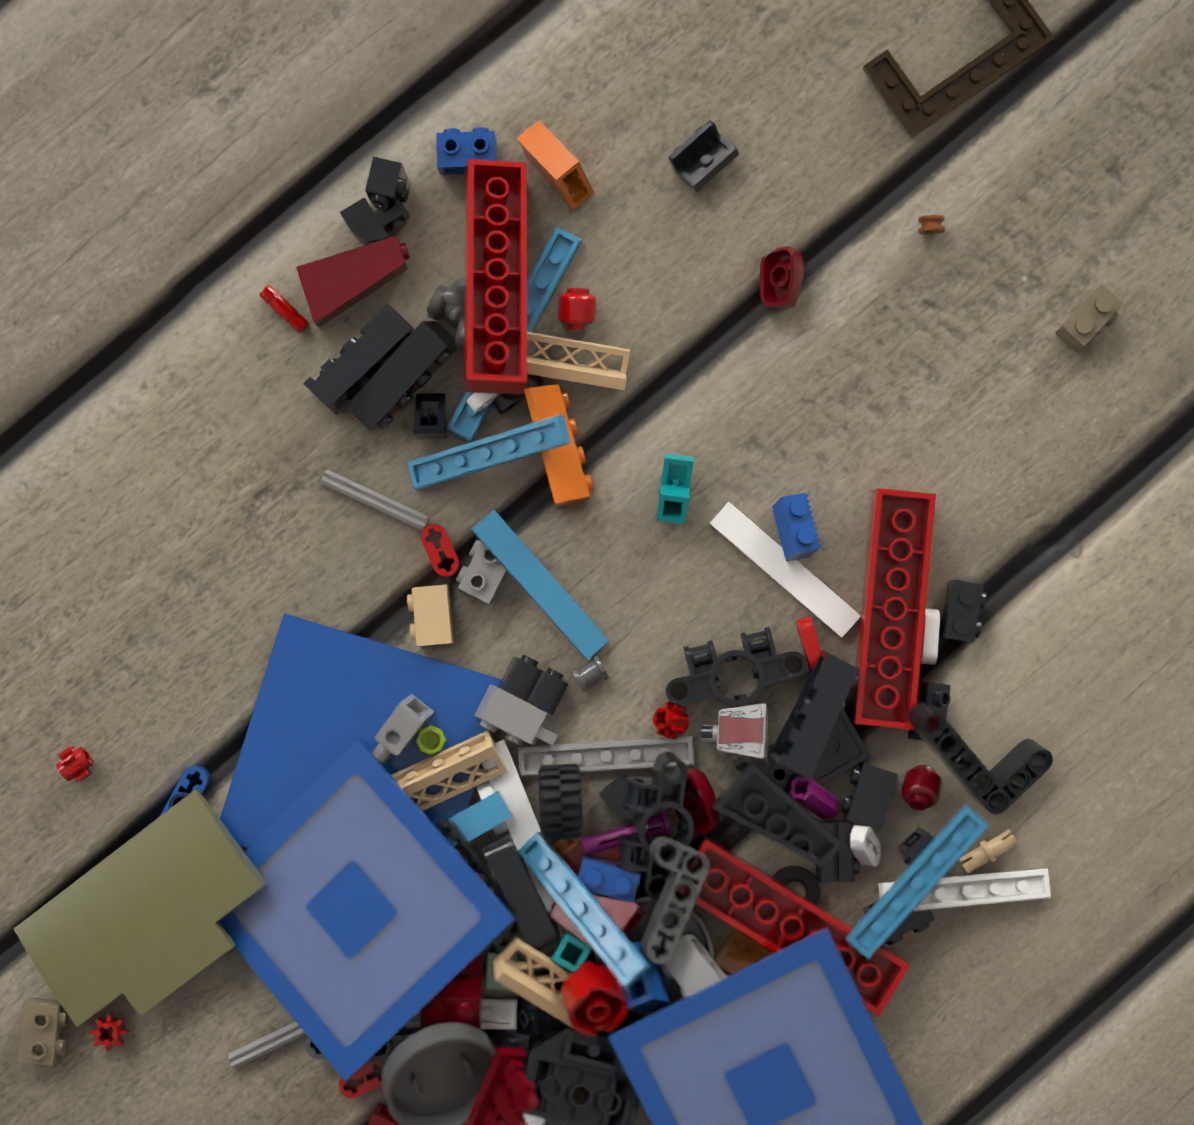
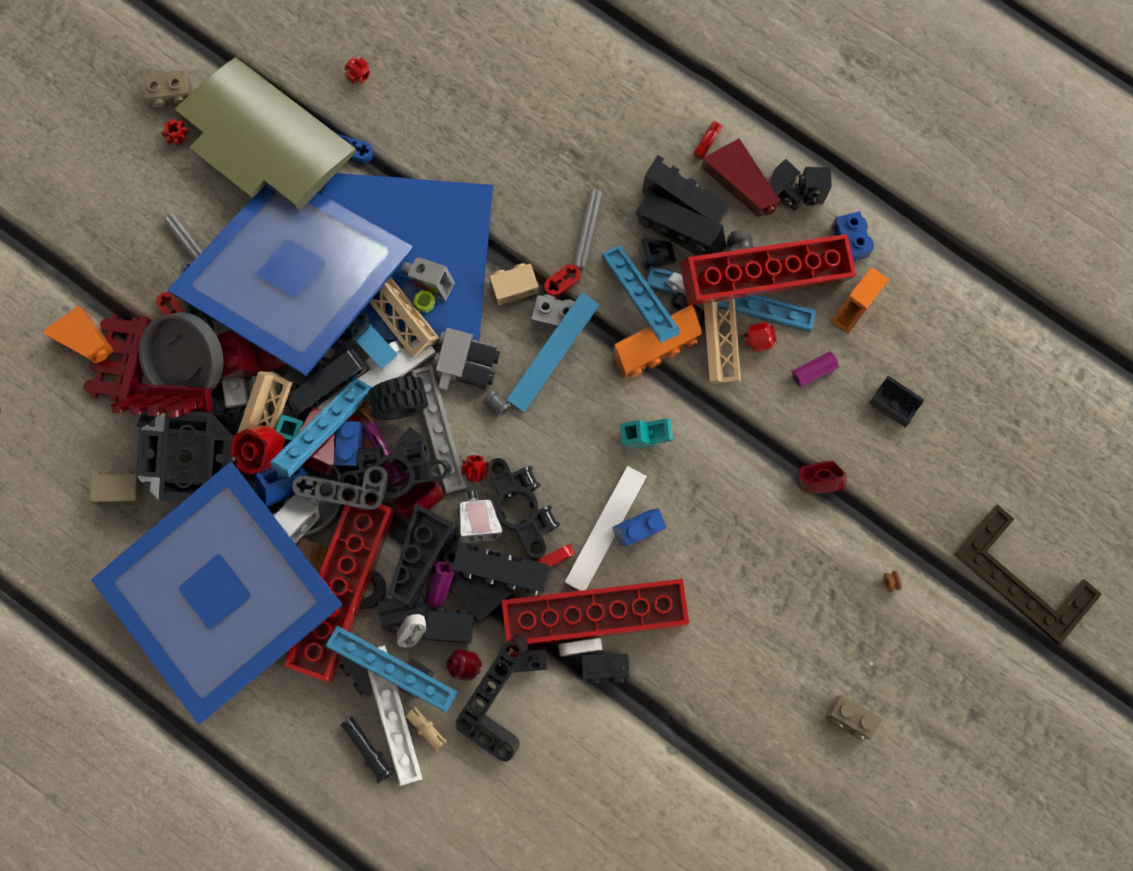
camera: 70 degrees right, 10 degrees down
(635, 248) = (815, 369): none -> magenta axle
(1011, 925) = (372, 758): none -> black pin

